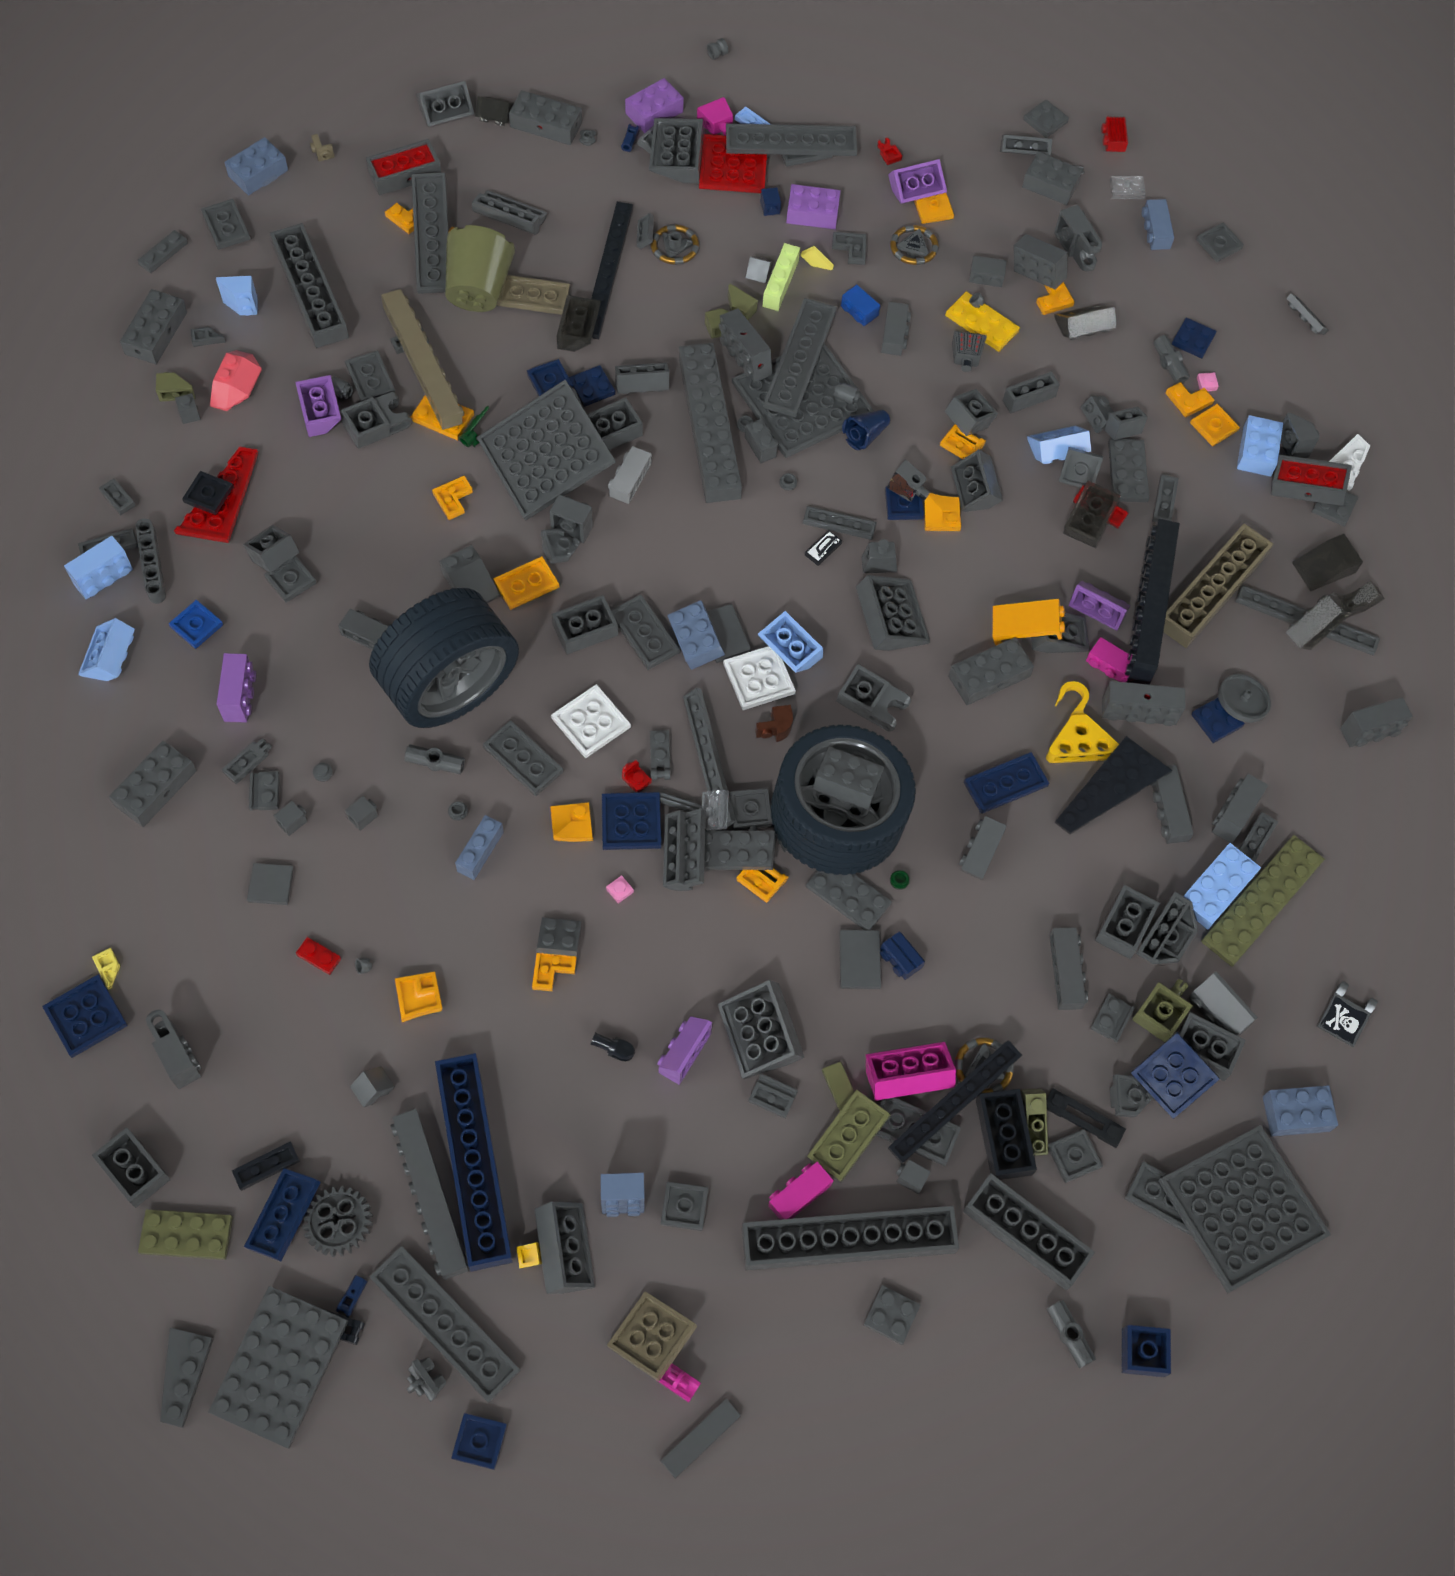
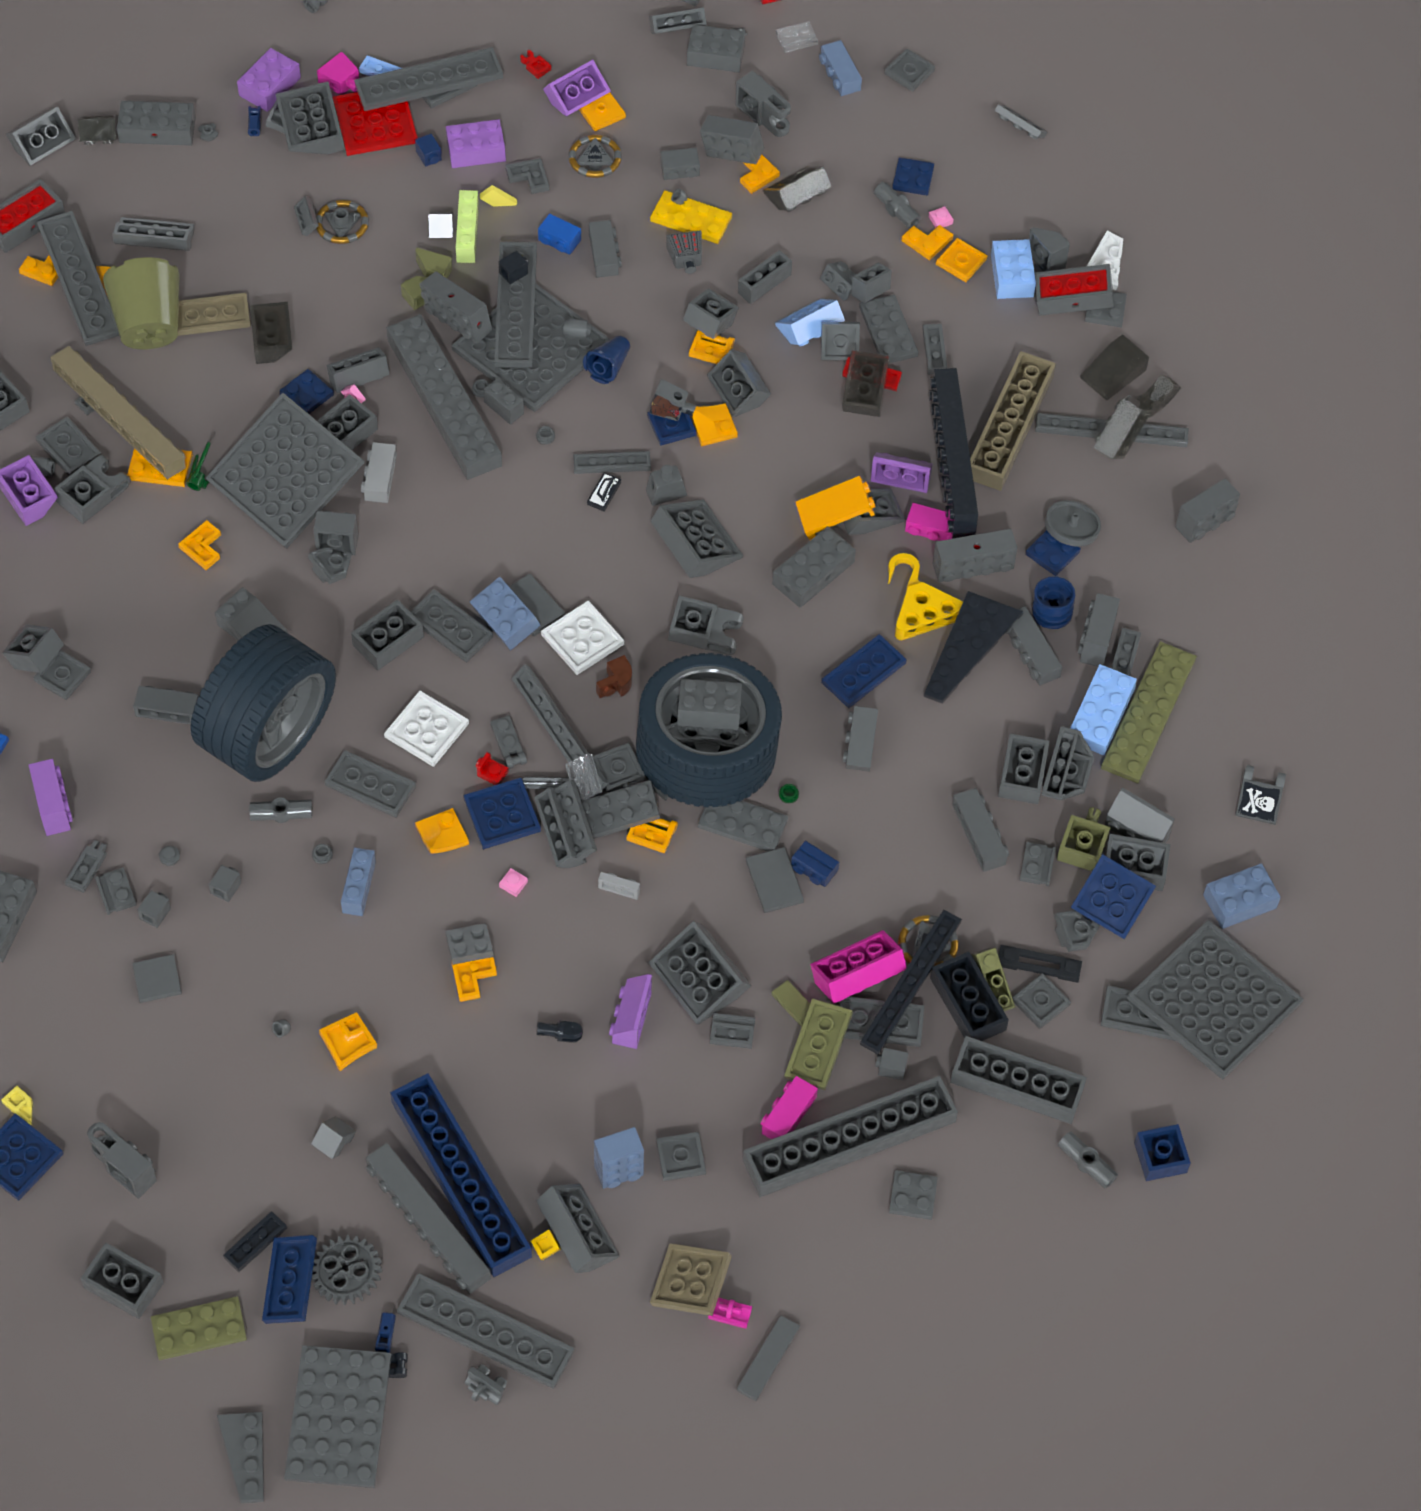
camera: 15 degrees left, 5 degrees down
(318, 955) = (232, 1032): red plate -> none
(479, 1441) = (557, 1424): dark blue plate -> none
(526, 583) = (310, 610): light orange plate -> none
(547, 376) = (257, 396): dark blue plate -> none
(610, 261) = (279, 253): black plate -> none
(631, 397) = (353, 390): none -> bright pink plate
(709, 918) = (618, 885): none -> light grey plate
(792, 643) = (605, 593): light blue slope -> none
(808, 323) = (513, 267): none -> black brick
(1203, 769) = (1053, 602): none -> dark blue wheel

